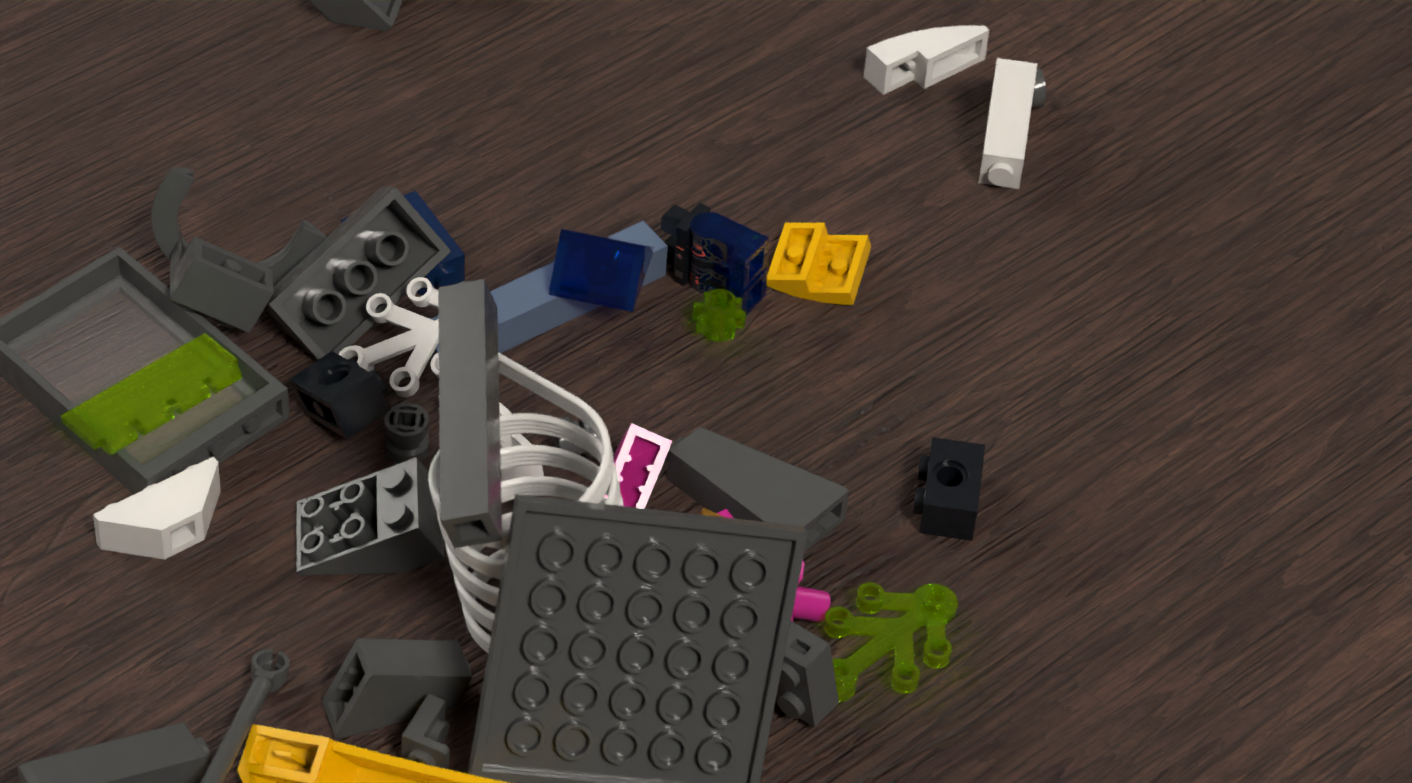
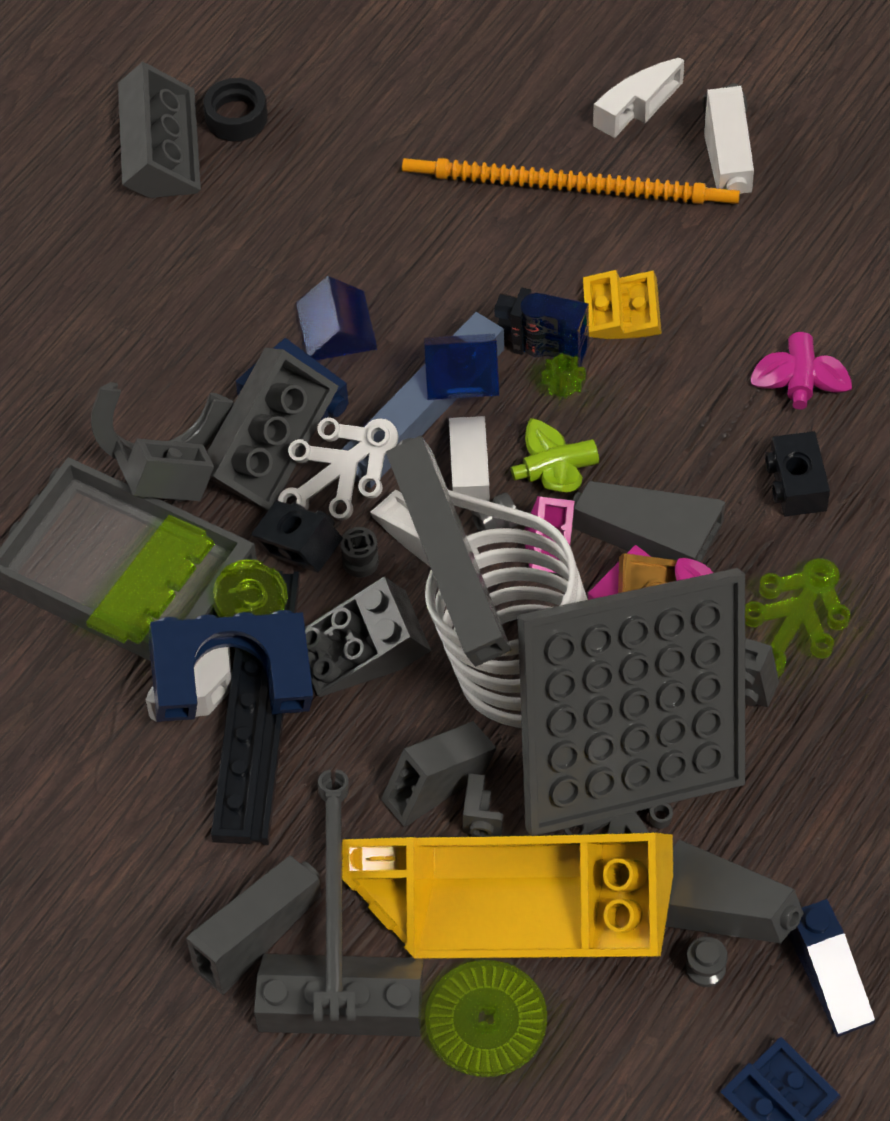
camera: 10 degrees left, 10 degrees up
(155, 463) = (273, 639): none -> dark blue arch
(217, 564) = (250, 749): none -> black plate
(258, 440) = (249, 588): none -> clear neon green tile
(485, 193) = (335, 320): none -> clear blue slope
(575, 367) = (469, 456): none -> white slope
(672, 397) = (554, 459): none -> lime plant
(953, 171) = (697, 193): none -> light orange hose
(999, 382) = (801, 371): none -> dark pink plant

